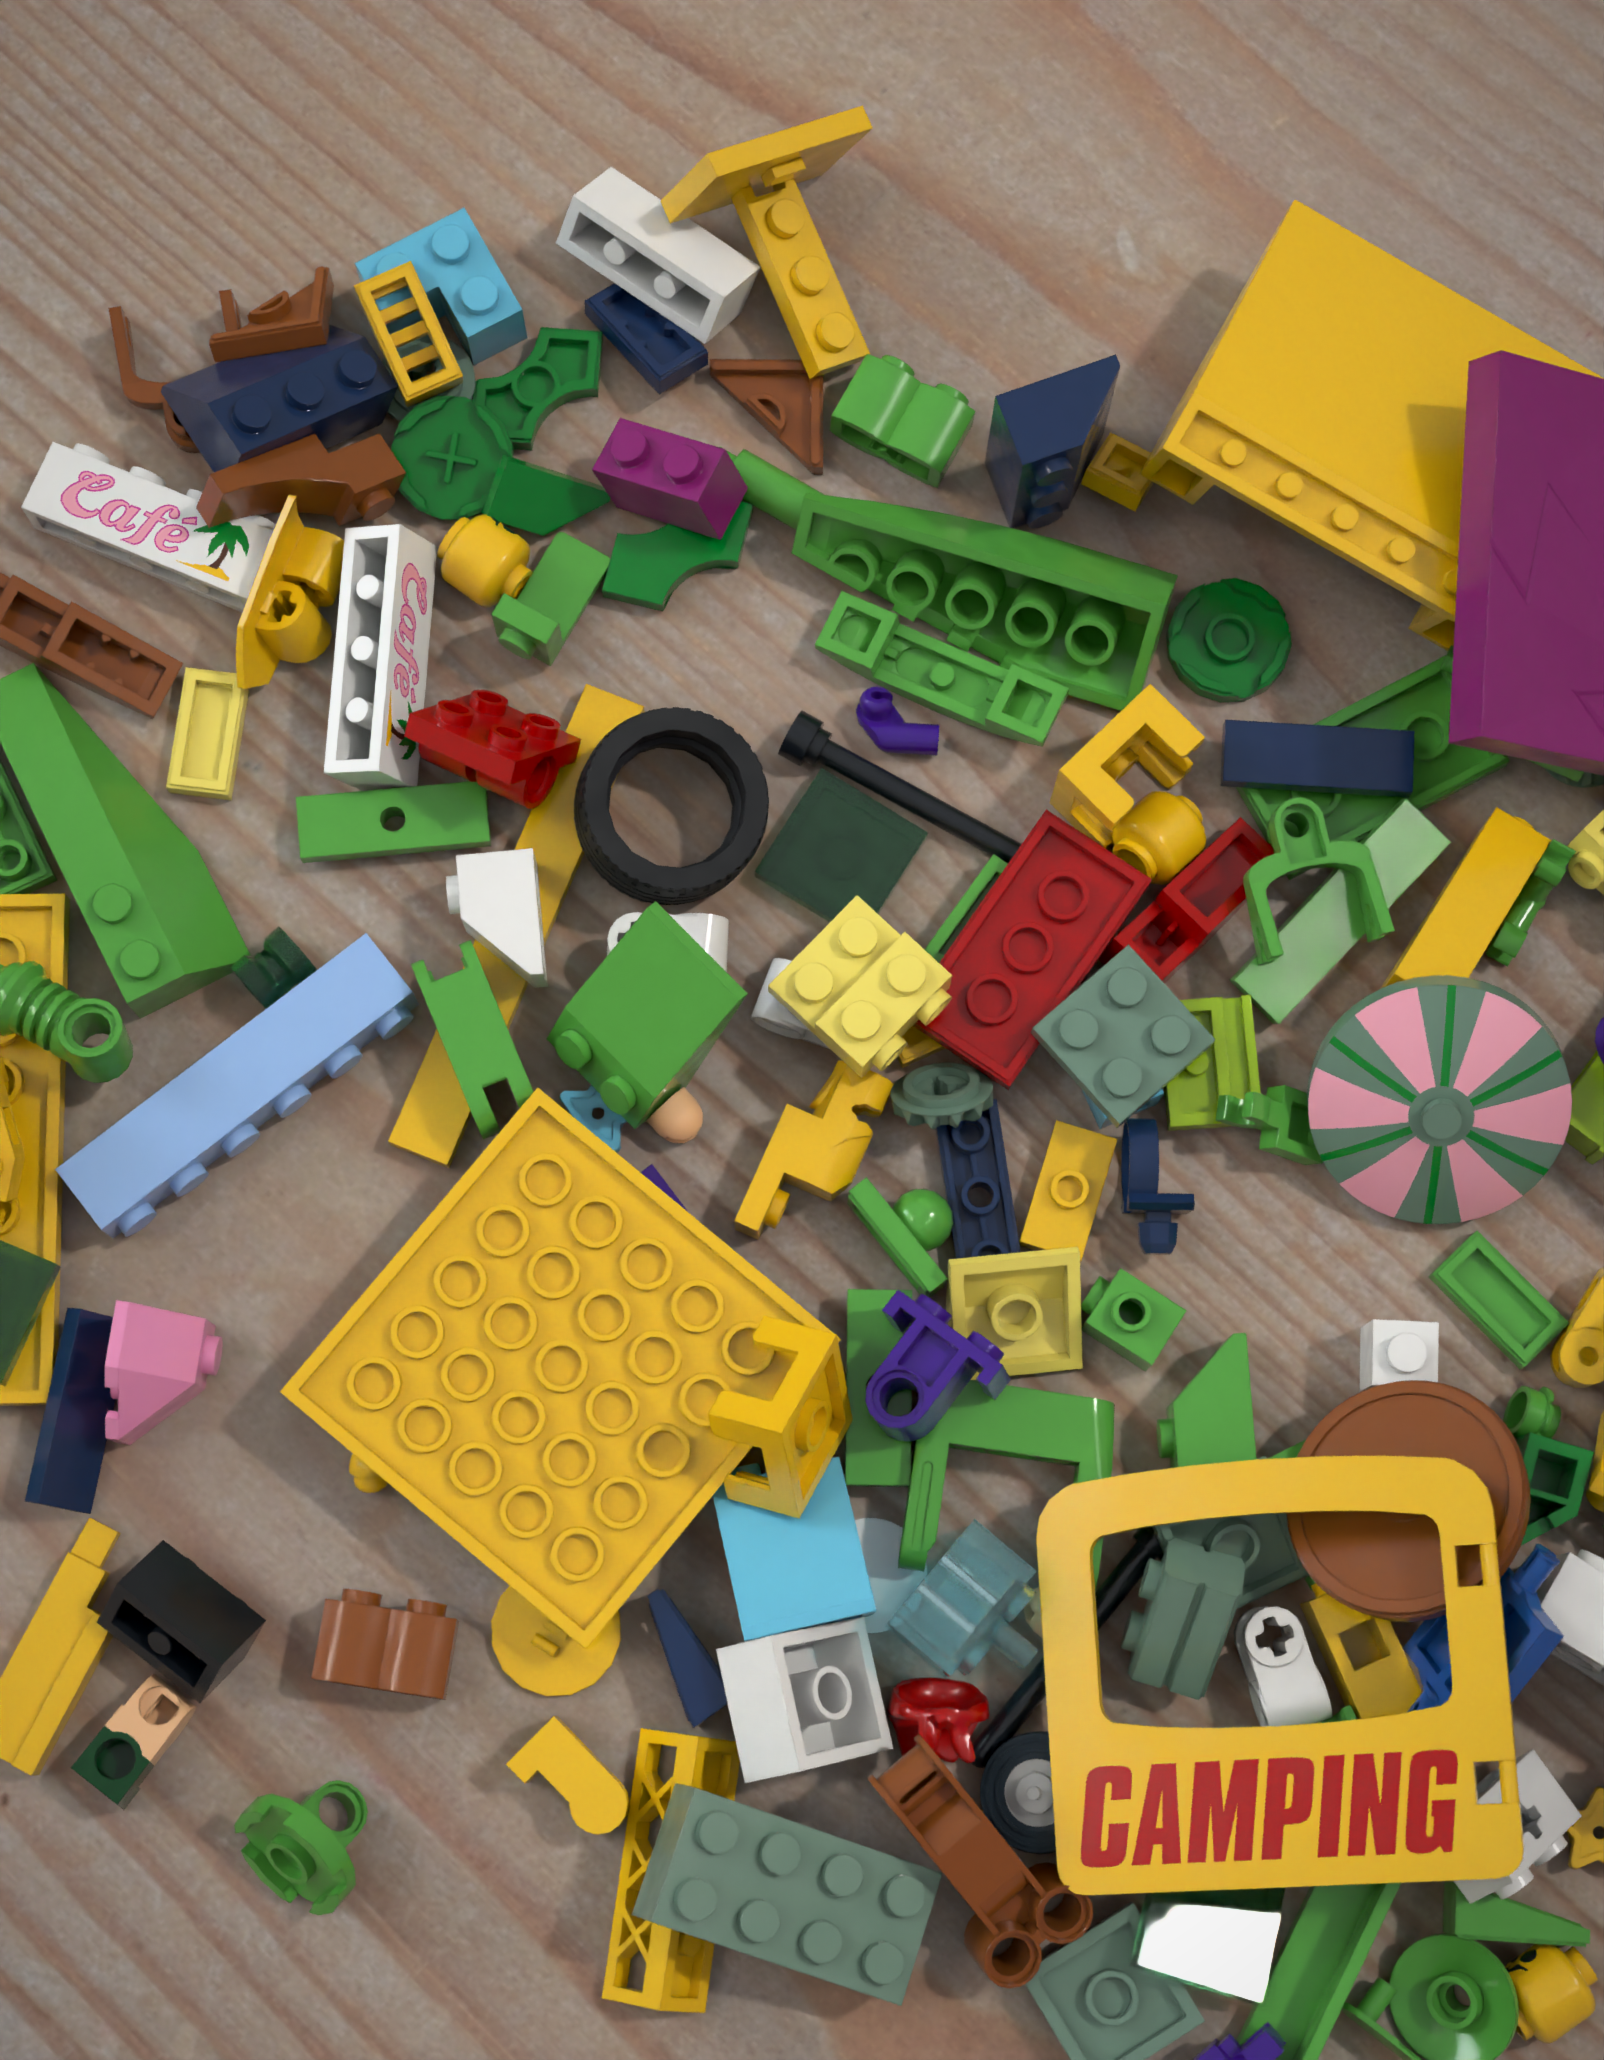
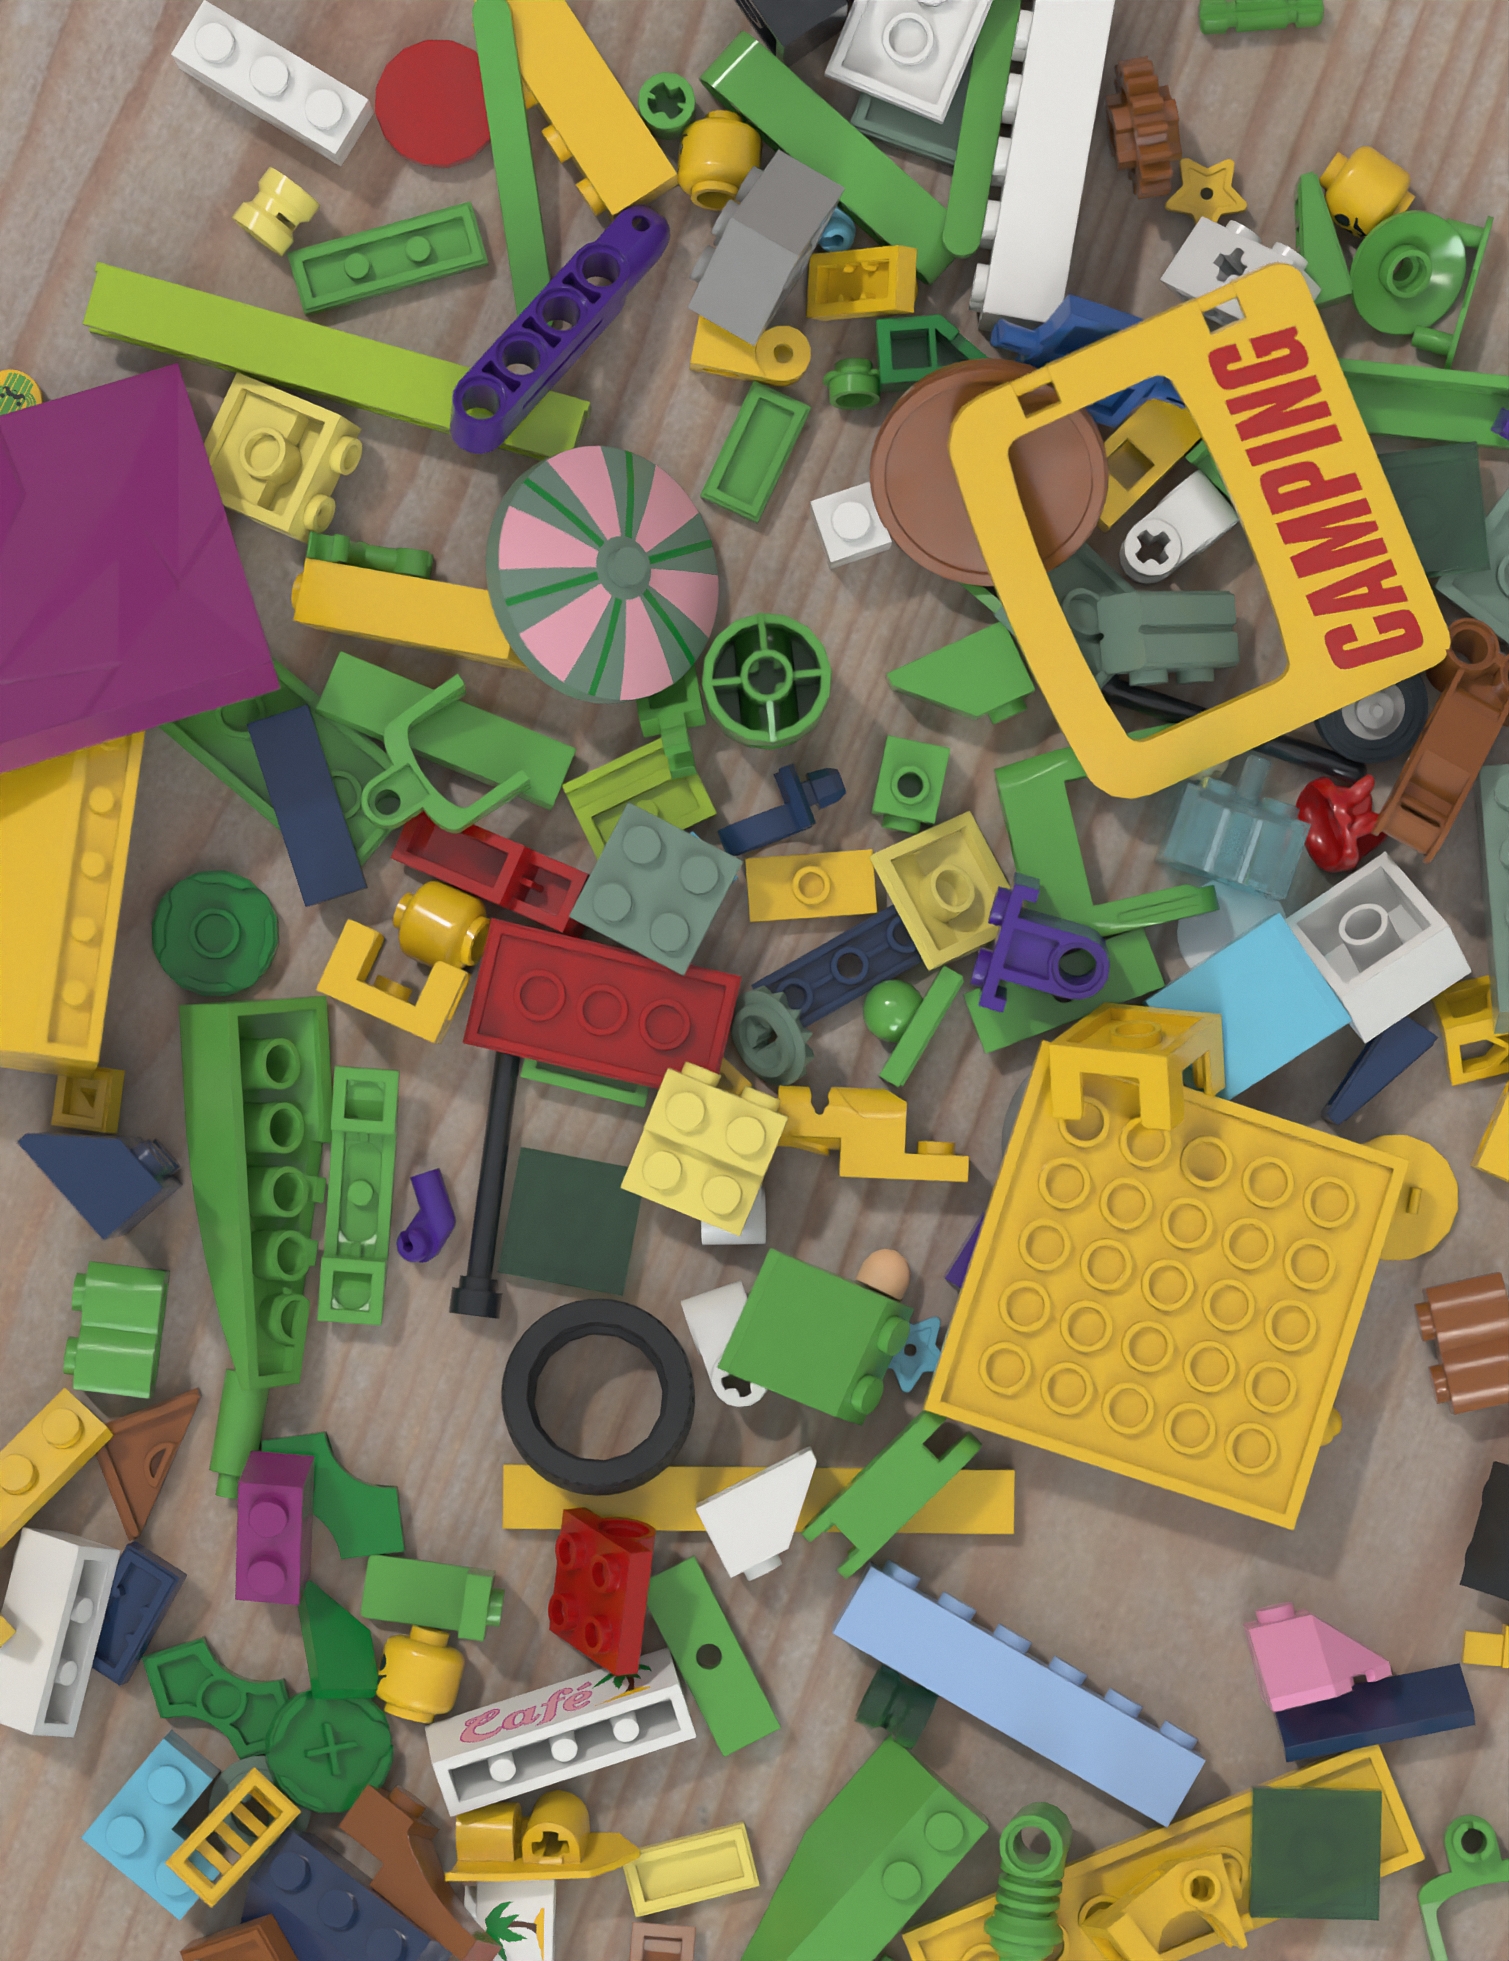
camera: 110 degrees left, 10 degrees up
(1281, 1213) = (766, 681): none -> bright green cylinder

